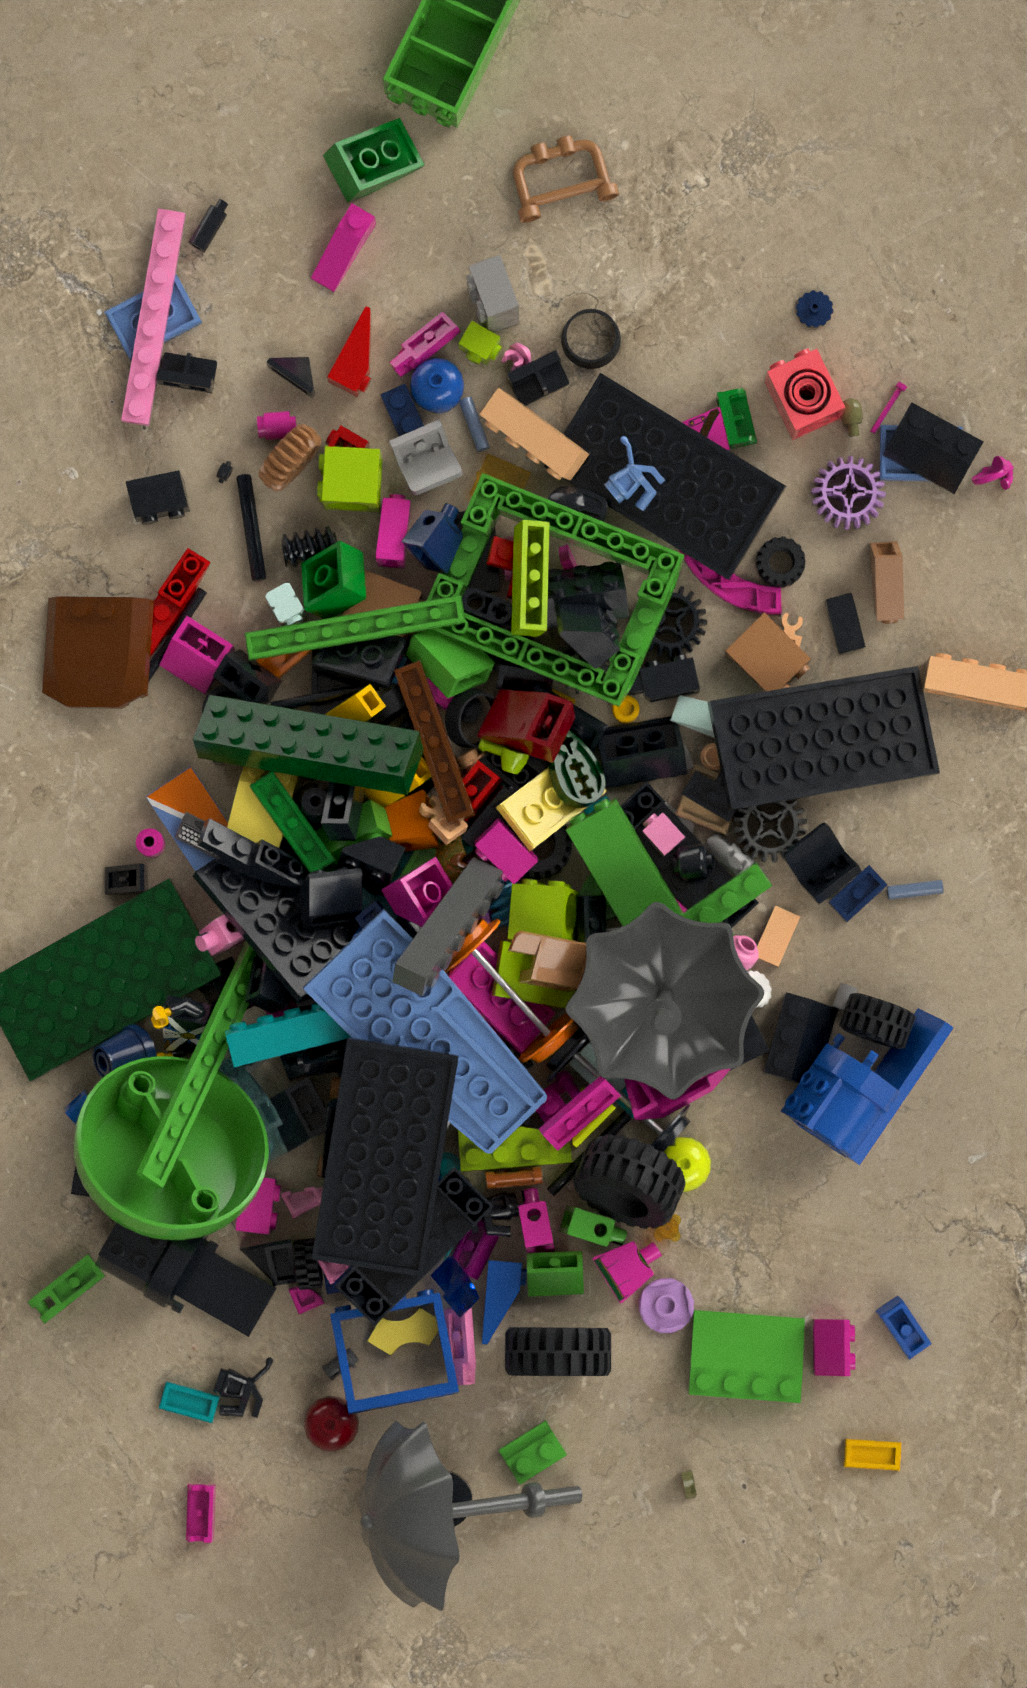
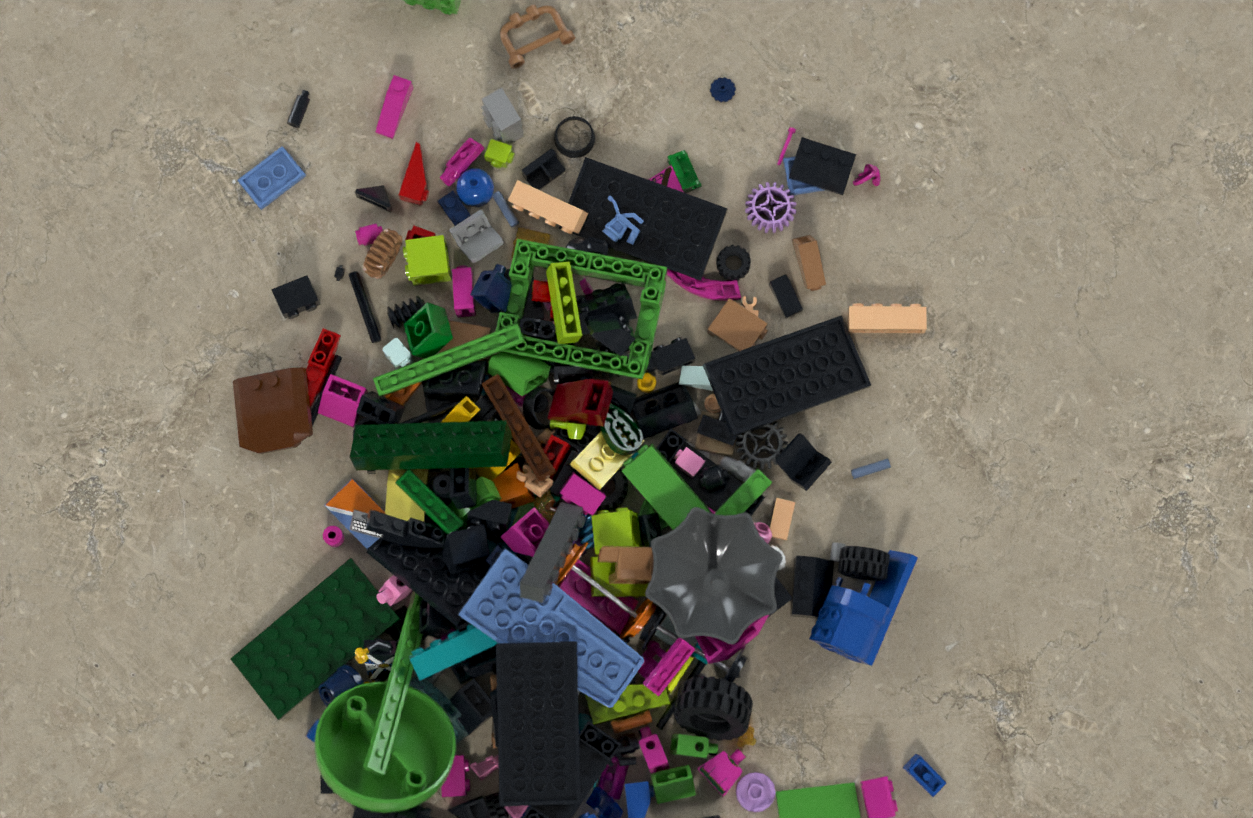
camera: 15 degrees left, 5 degrees down
(126, 879) = (321, 565): black slope -> none
(153, 317) = (271, 177): bright pink plate -> none
(187, 372) = (302, 210): black panel -> none
(372, 159) = (402, 45): green slope -> none
(518, 354) = (526, 156): bright pink plate -> none
(683, 641) = (672, 322): black gear -> none
(692, 1159) = (755, 685): neon yellow cylinder -> none
(804, 376) = (727, 134): coral brick -> none
(852, 416) = (762, 155): olive cylinder -> none
(857, 893) = (831, 478): dark blue plate -> none

